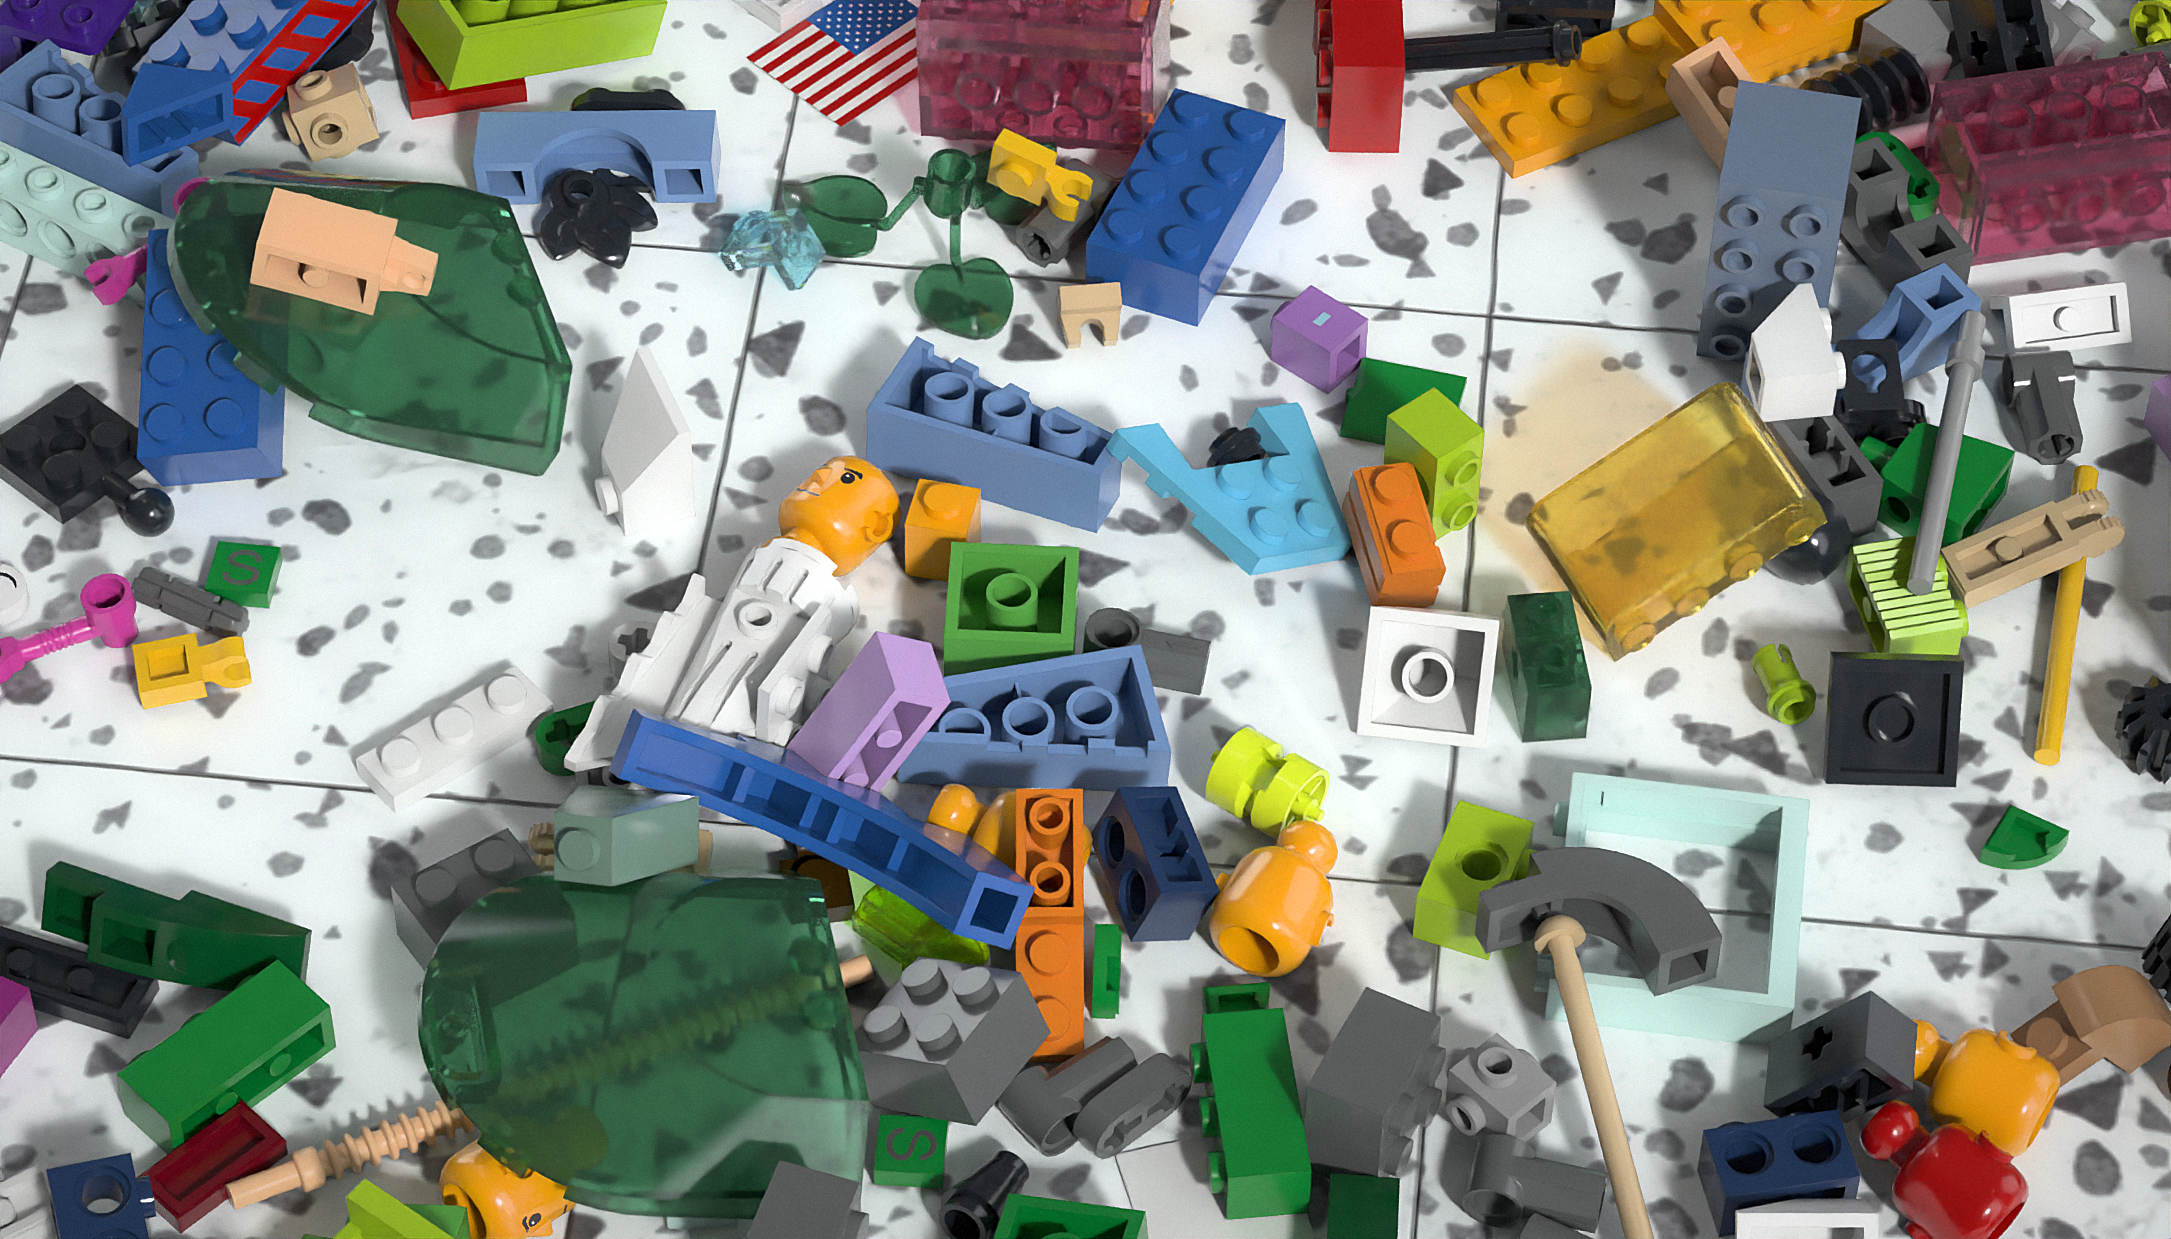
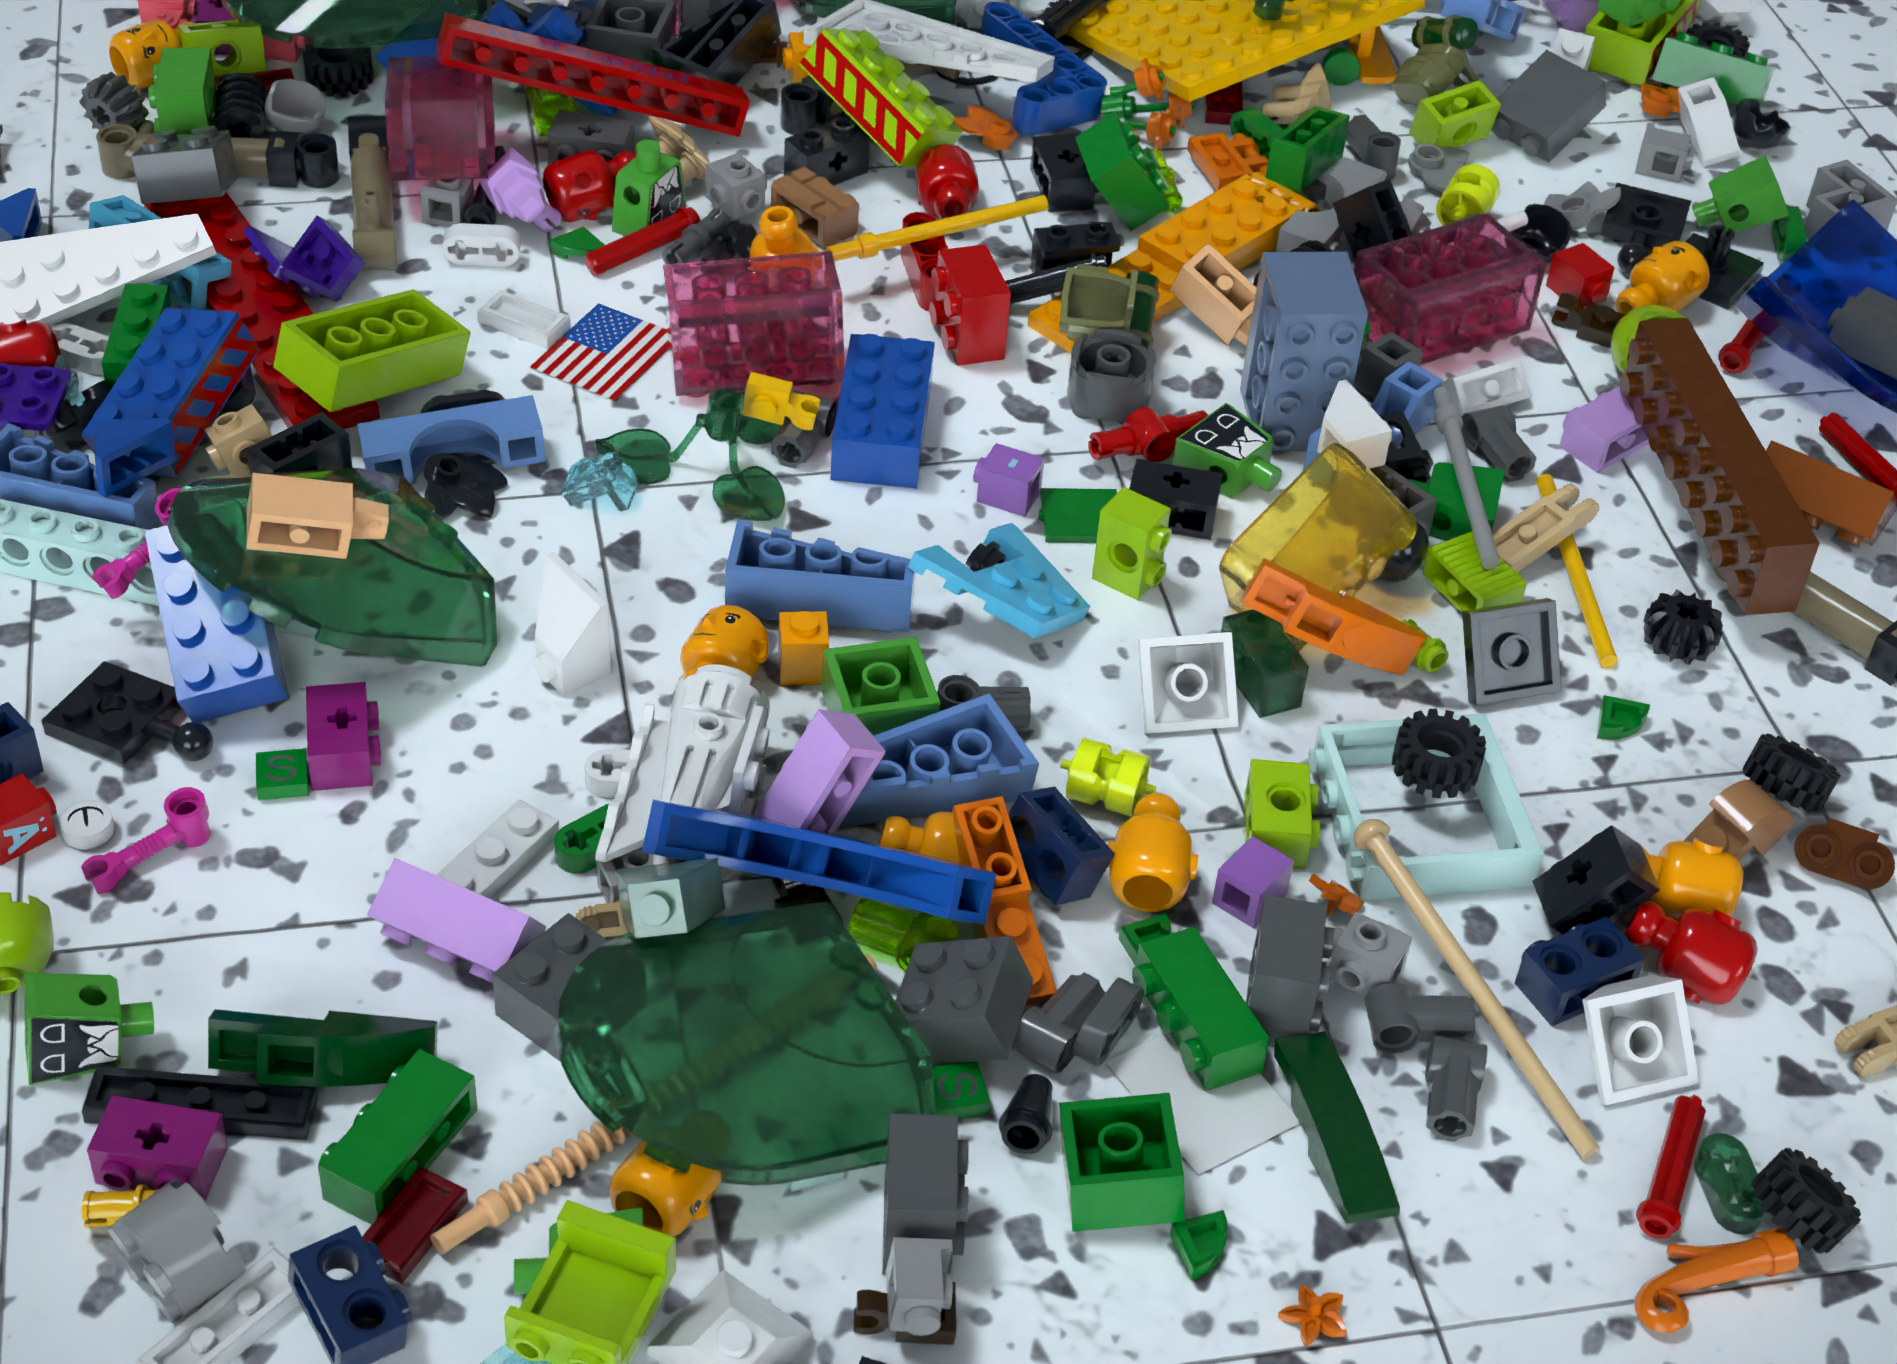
camera: 20 degrees left, 5 degrees down
(178, 667) = (259, 851): yellow plate -> none
(190, 603) = (250, 802): dark grey axle -> none
(325, 539) = (340, 736): none -> magenta brick
(371, 804) = (450, 920): none -> lavender brick
(398, 142) = (305, 446): none -> black brick
(1086, 305) = (844, 482): tan tile -> none
(1106, 971) = (1044, 912): green tile -> none
(1393, 536) = (1122, 595): orange brick -> none
(1400, 958) = (1248, 876): none -> medium lavender brick
(1506, 1007) = (1337, 896): none -> orange plant
(1520, 210) = (1110, 375): none -> dark grey brick
(1534, 407) = (1187, 491): none -> black brick
(1543, 306) = (1144, 435): none -> red pin
(1554, 109) = (1102, 300): none -> olive piece
(1612, 898) = (1410, 802): dark grey arch -> none
(1635, 351) = (1231, 446): none -> torso
(1651, 636) = (1331, 621): none -> orange slope
(1716, 815) = (1434, 771): none -> black tyre

